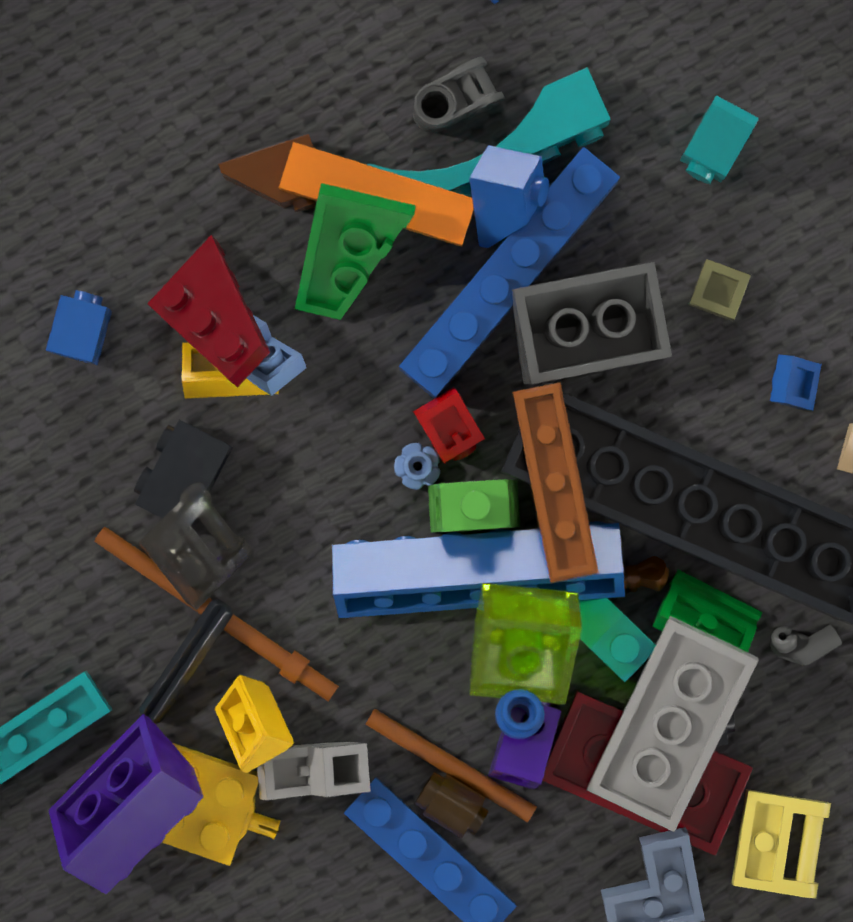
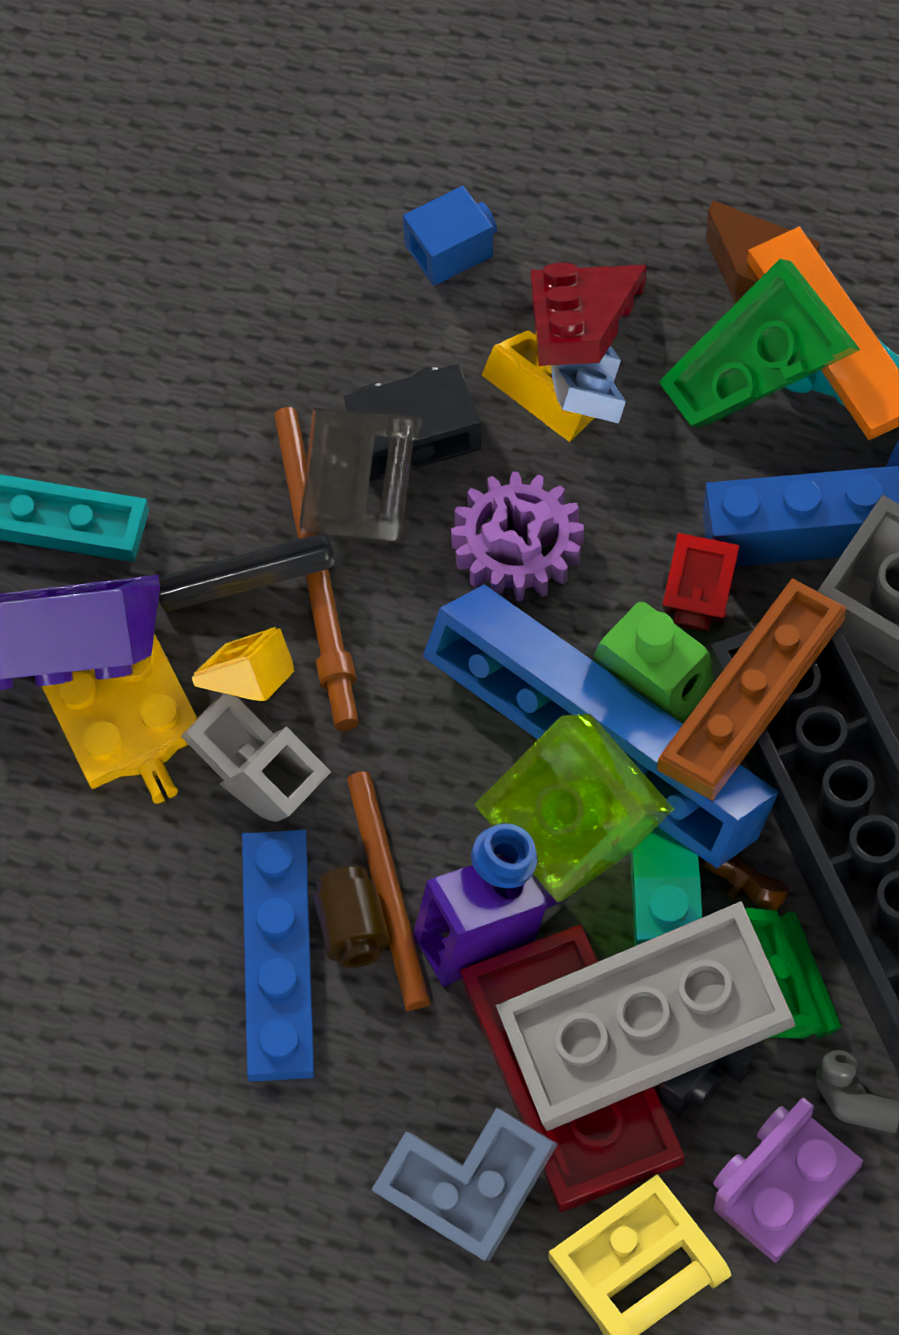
camera: 45 degrees right, 25 degrees down
(323, 469) = (504, 556): none -> medium lavender gear
(404, 466) = (623, 590): medium blue plate -> none
(812, 726) = (784, 1180): none -> medium lavender bracket

